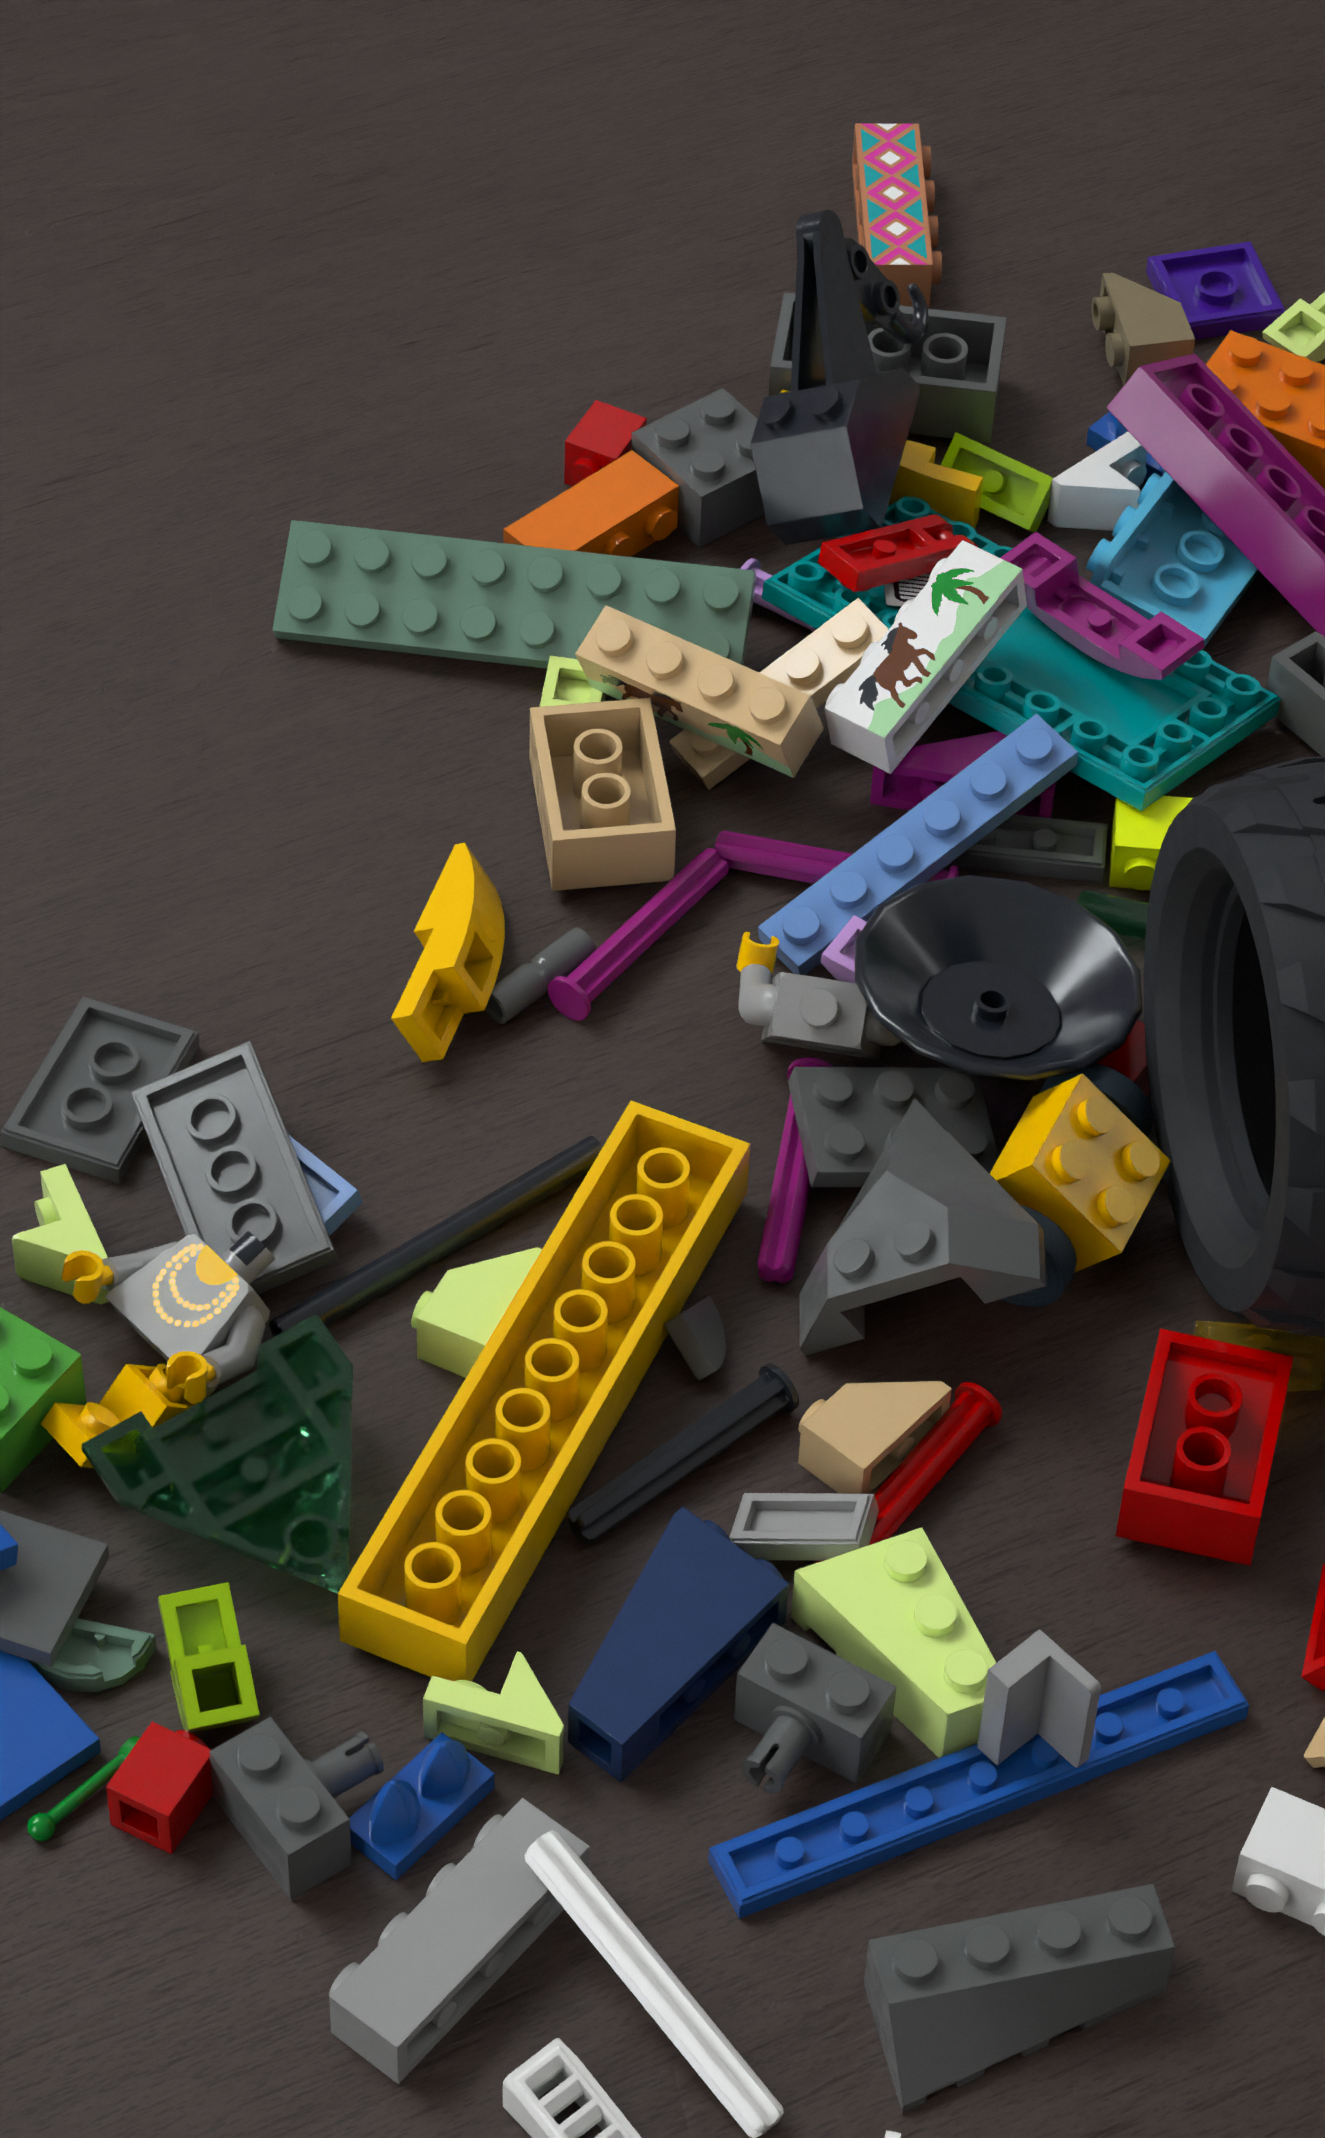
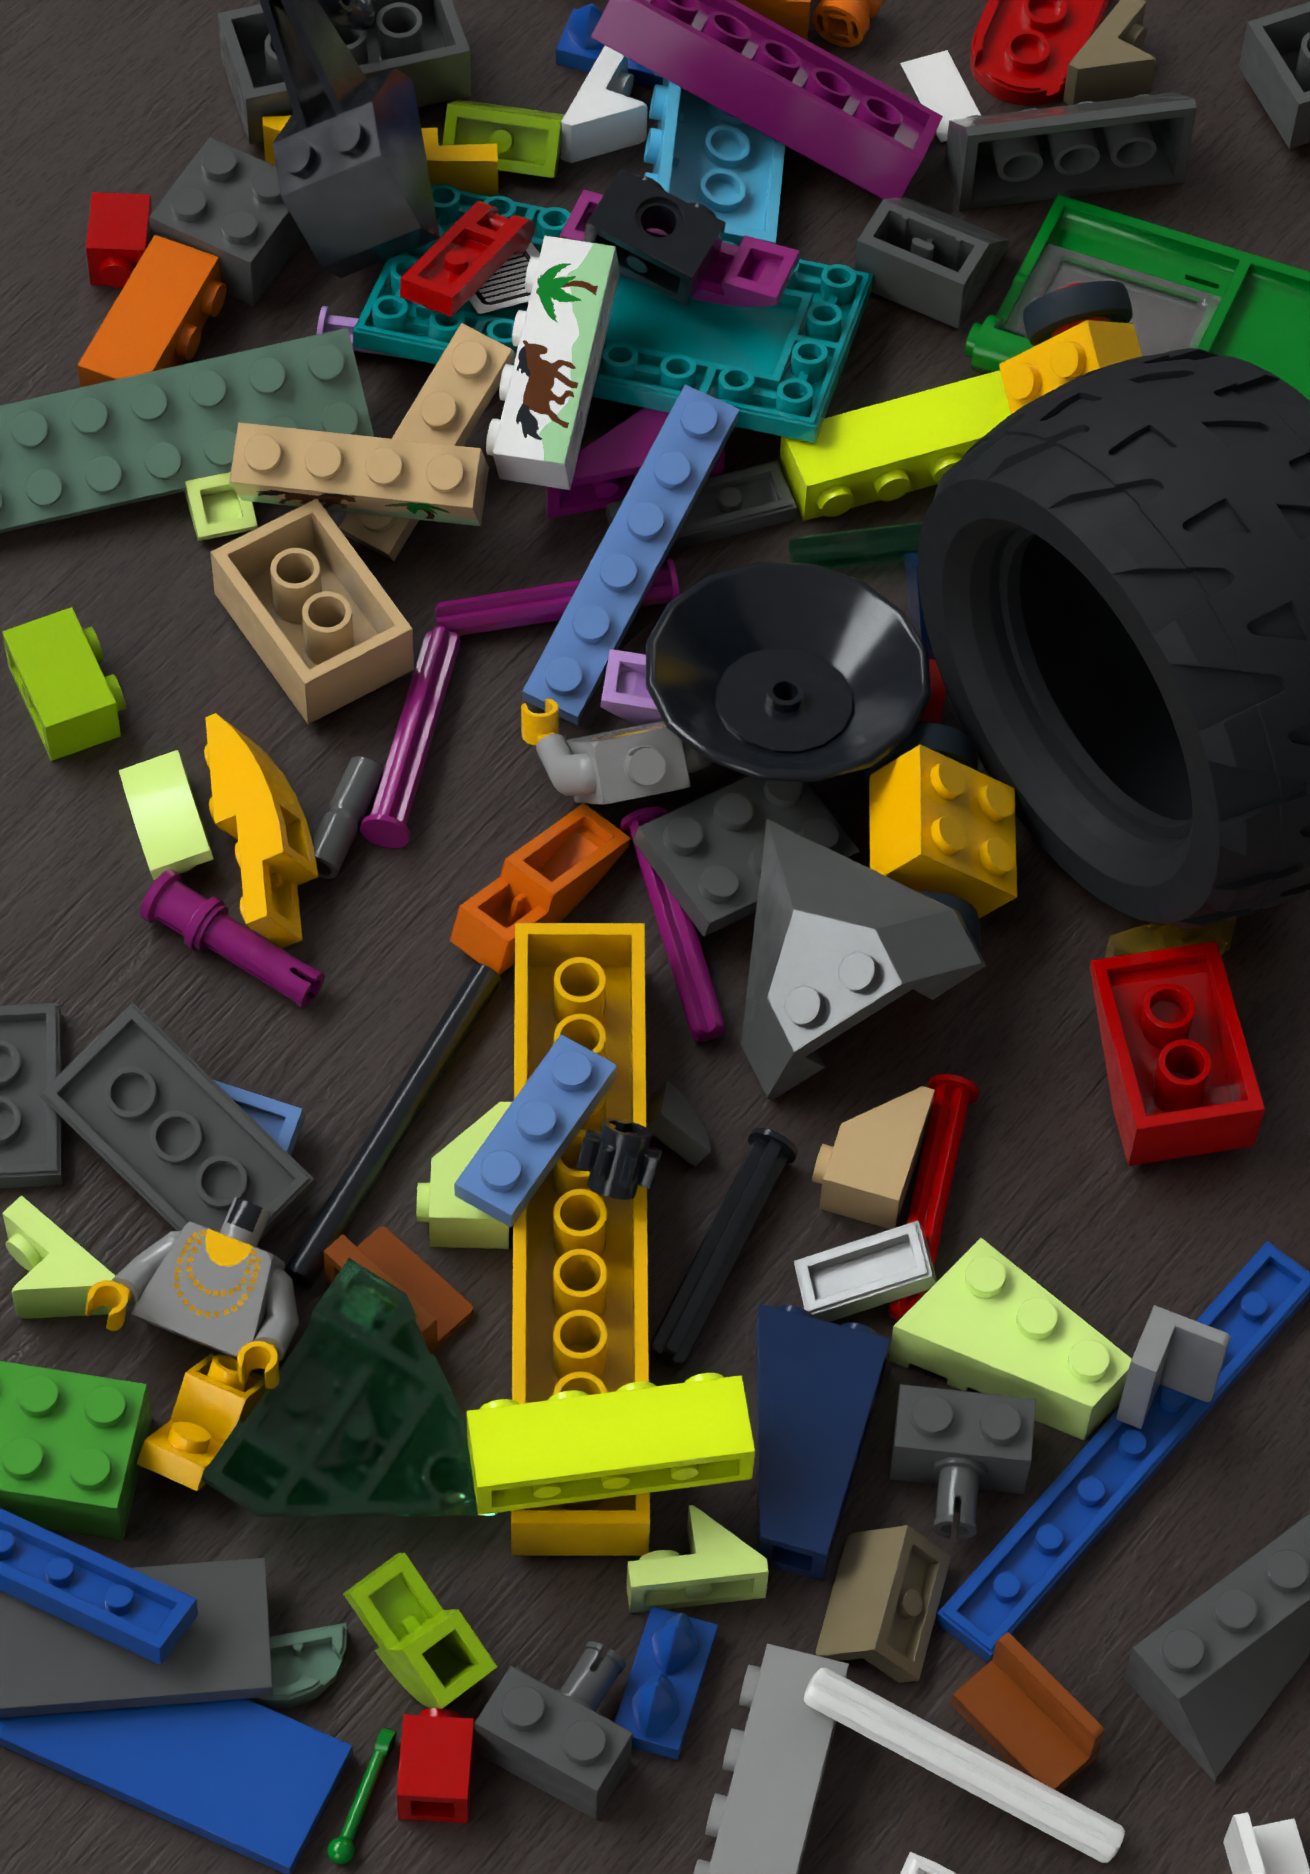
camera: 25 degrees left, 10 degrees up
(349, 779) = (63, 683): none -> lime brick
(365, 1017) = (207, 925): none -> magenta pin
(378, 916) = (166, 814): none -> yellowish green slope
(382, 1394) = (436, 1303): none -> dark orange panel
(459, 1555) = (610, 1443): none -> neon yellow brick
(547, 1273) = (535, 1130): none -> medium blue plate
(605, 1319) = (619, 1159): none -> black gear
(668, 1818) = (885, 1601): none -> dark tan panel
(692, 1083) = (538, 885): none -> orange slope
(745, 1975) = (1029, 1716): none -> dark orange panel
(1083, 611) = (666, 263): none -> black brick

